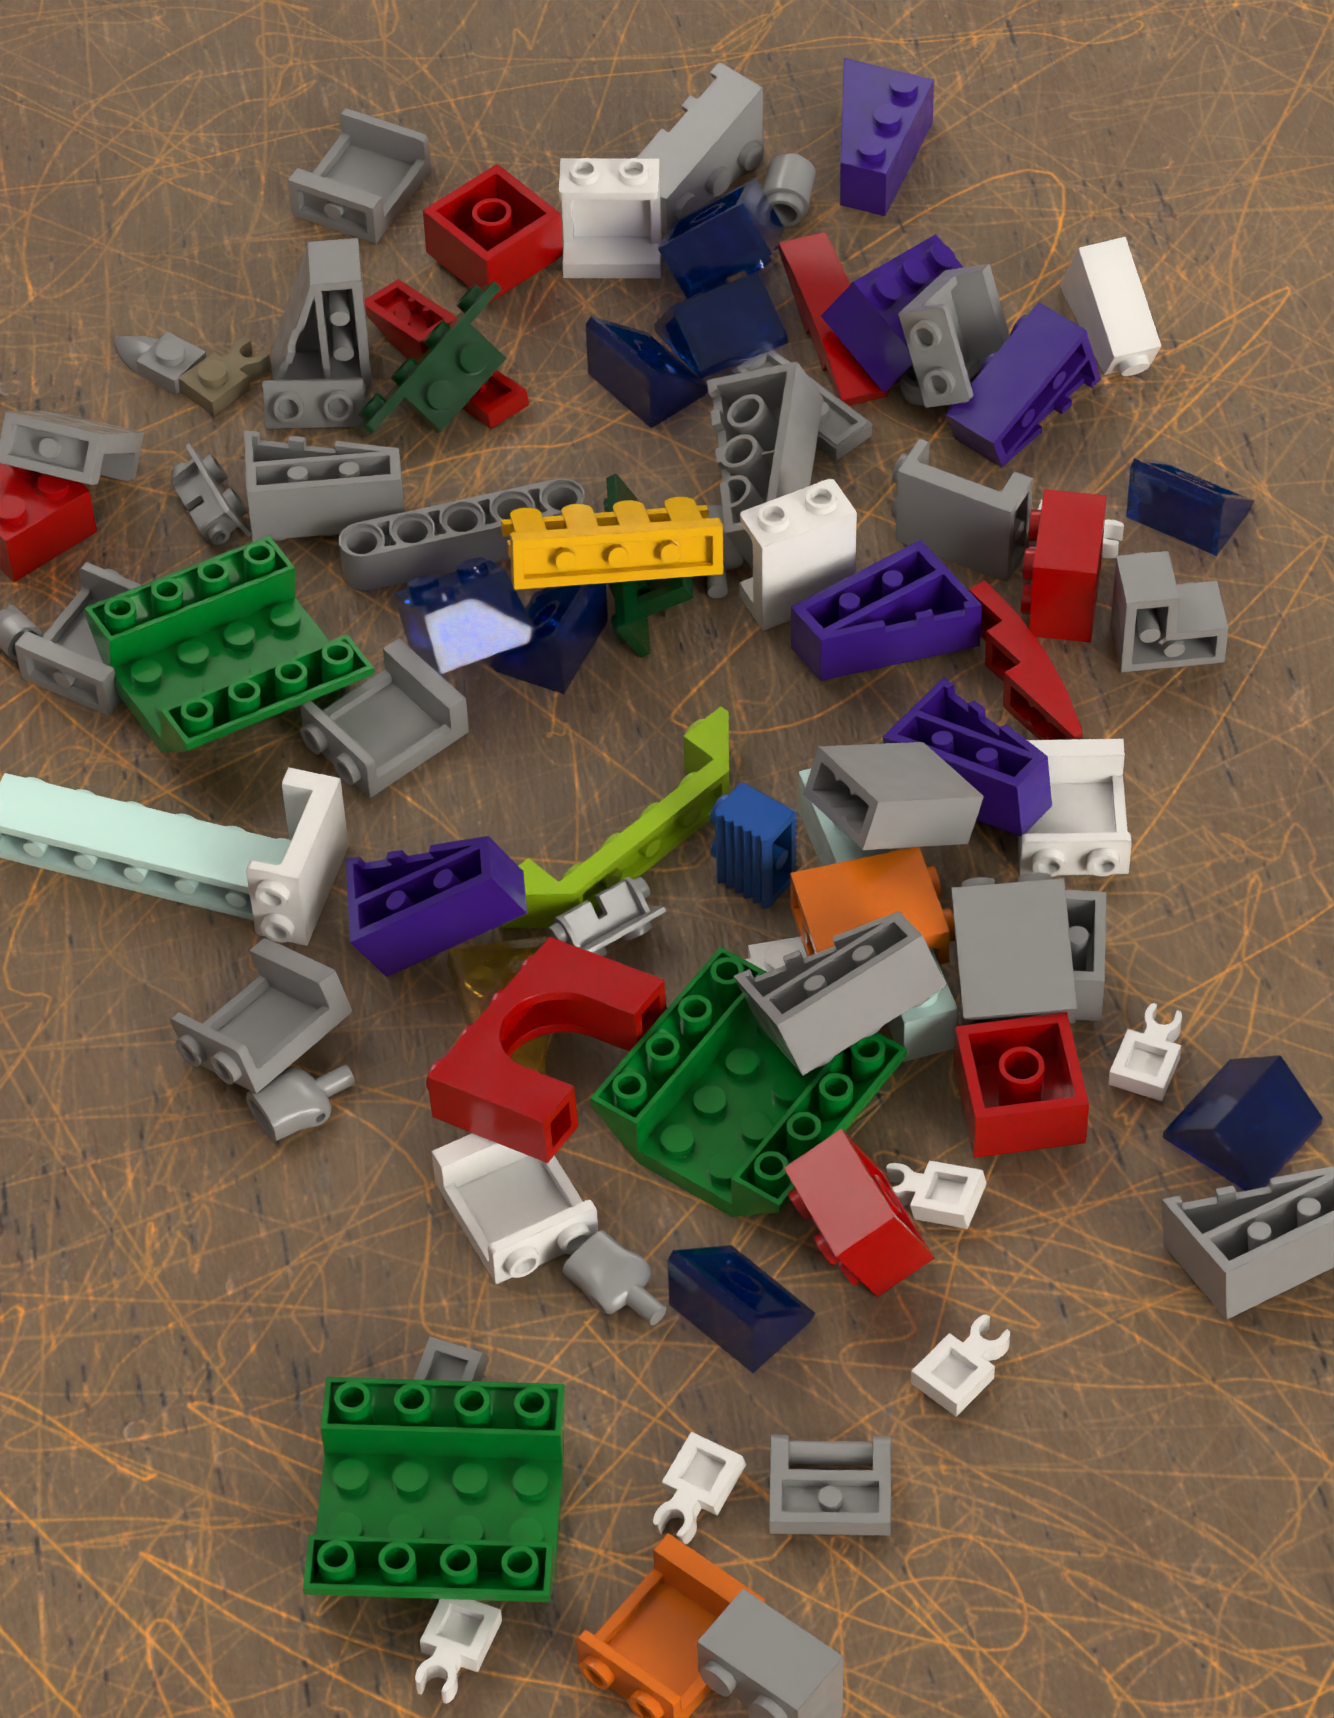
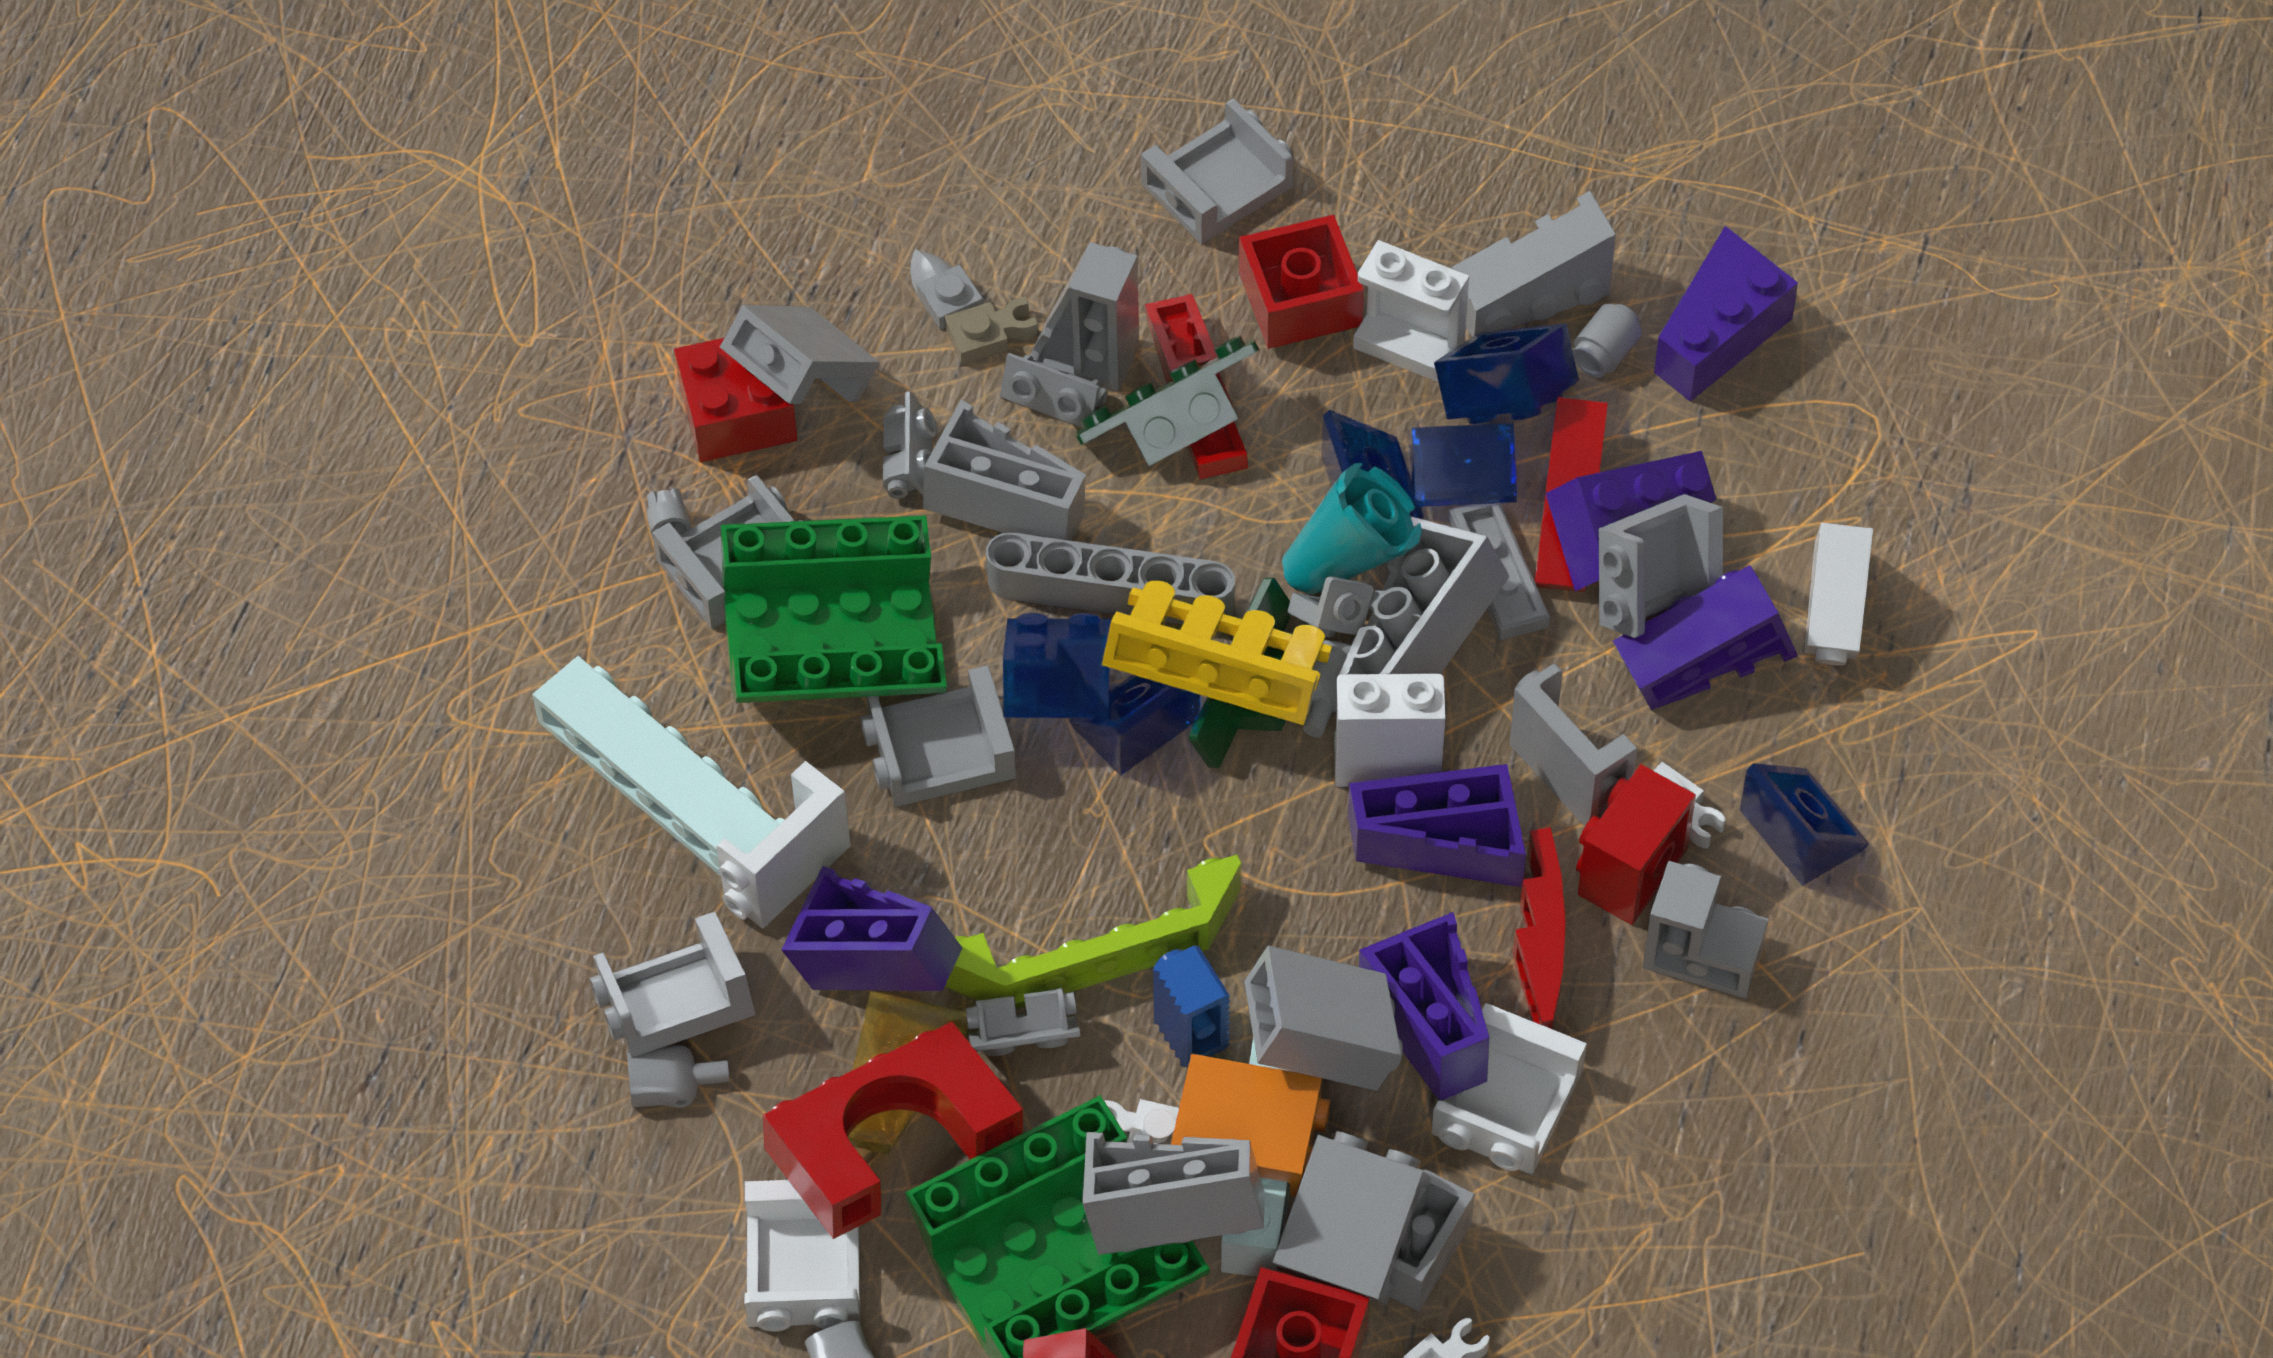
camera: 25 degrees right, 5 degrees up
(666, 410) = (1352, 530): none -> teal cone
(693, 475) = (1339, 609): none -> light grey bracket

